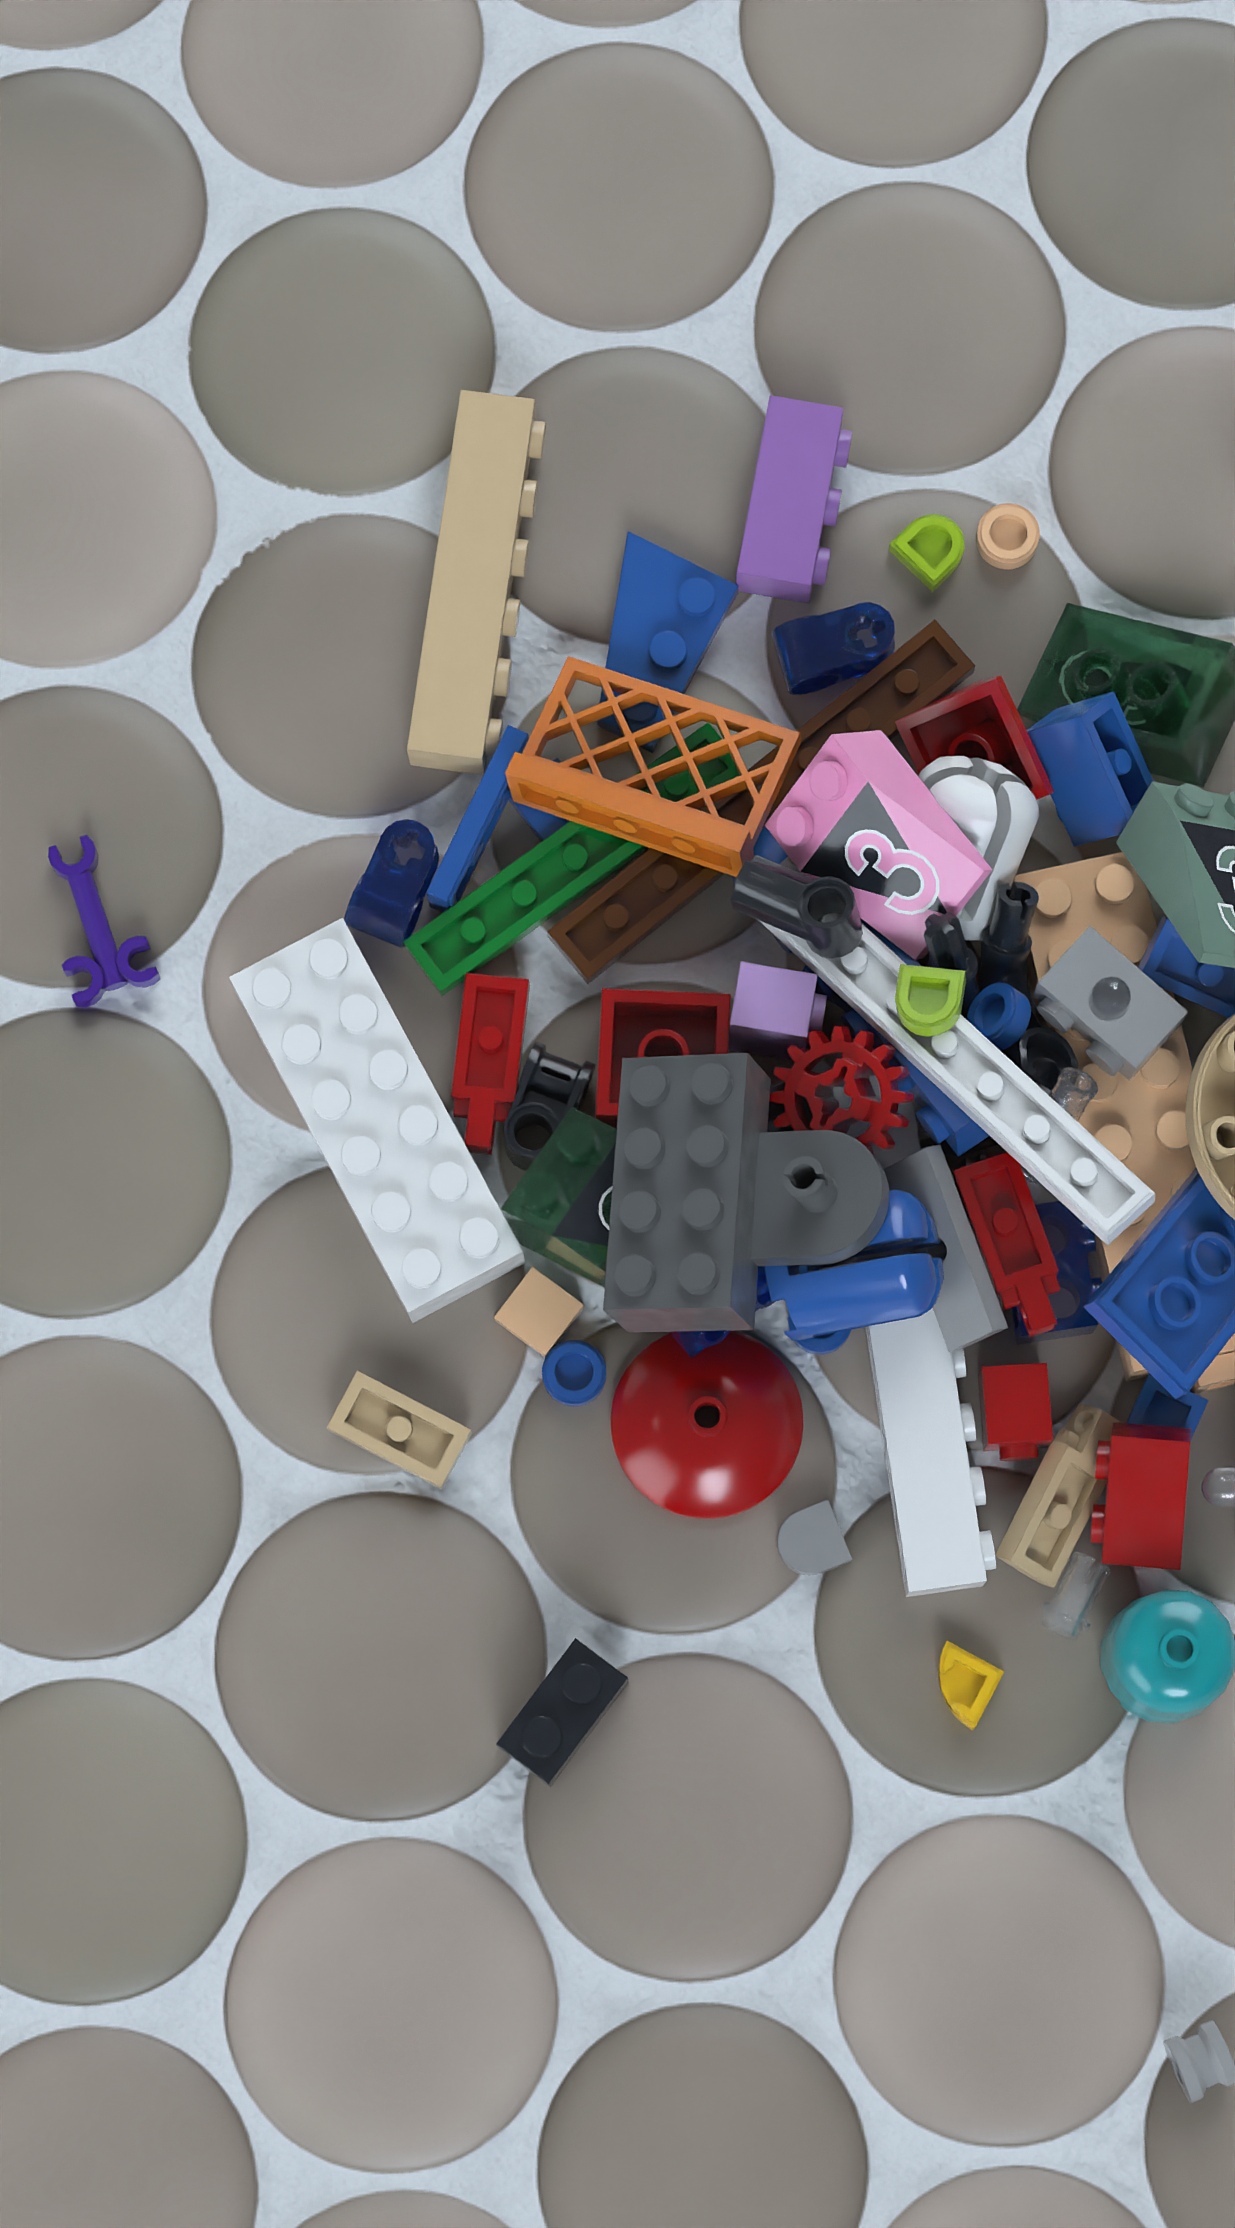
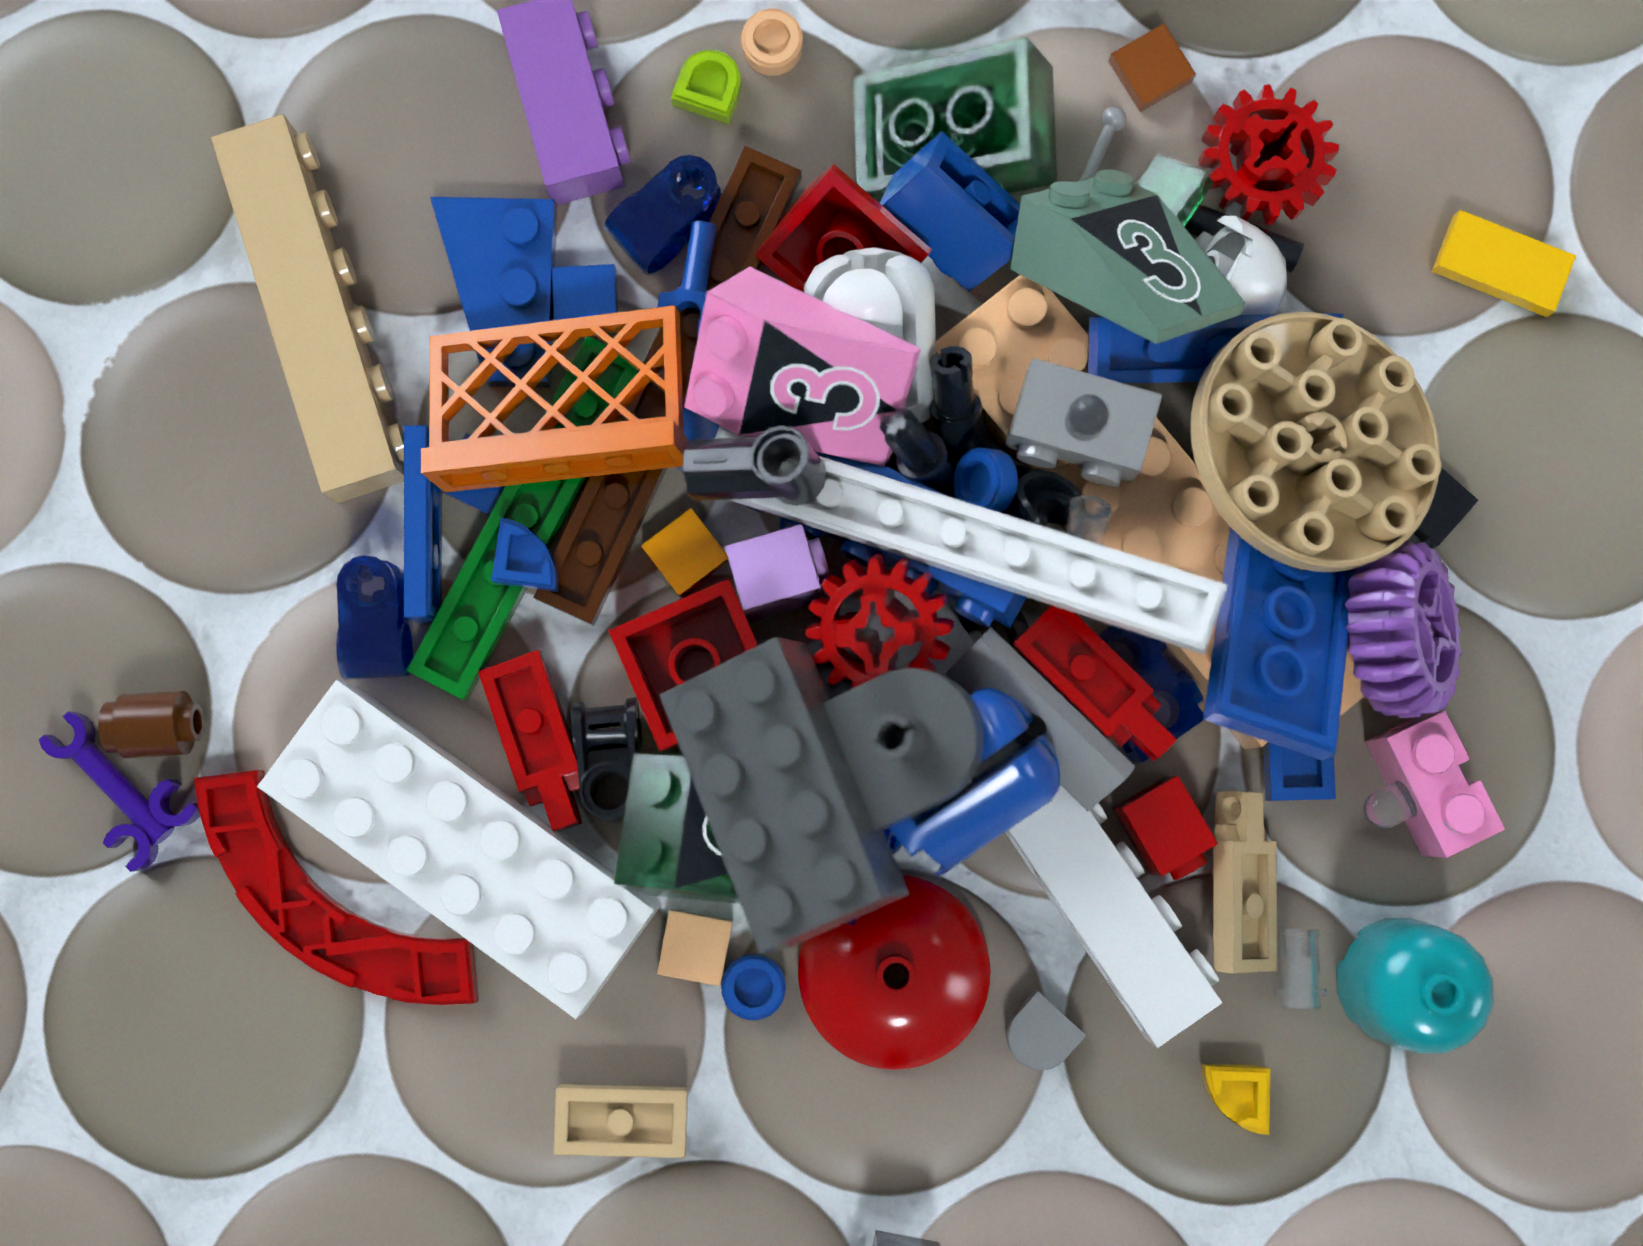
camera: 30 degrees left, 5 degrees up
(155, 881) = (151, 724): none -> reddish brown brick
(207, 1124) = (309, 920): none -> red tile
(555, 893) = (523, 559): none -> blue tile
(702, 958) = (685, 552): none -> light orange tile
(726, 681) = (584, 290): none -> blue tile
(835, 709) = (696, 271): none -> blue bar
(929, 998) = (918, 498): lime tile -> none
(1144, 1495) = (1323, 852): red brick -> none

